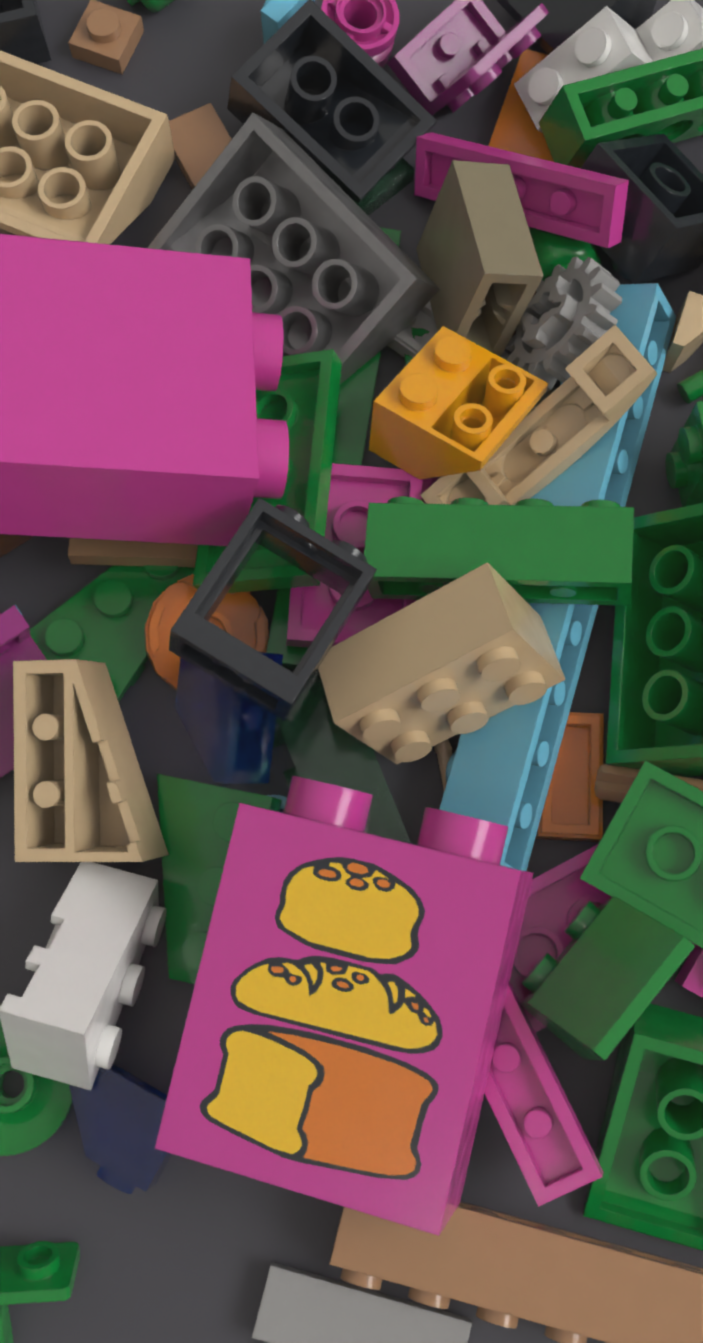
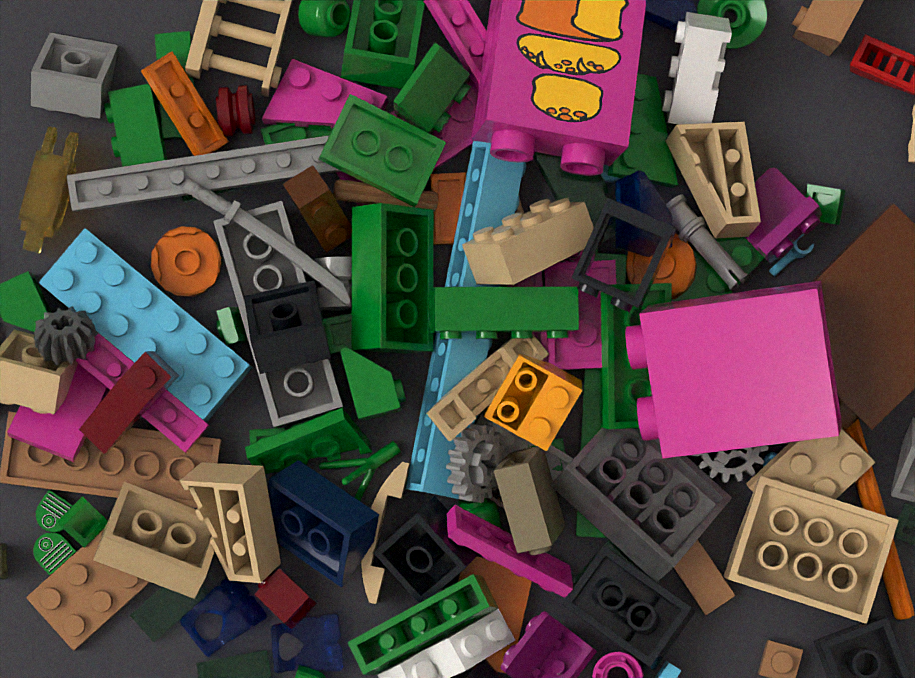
camera: 170 degrees right, 10 degrees up
(140, 686) = (693, 230): none -> light grey pin

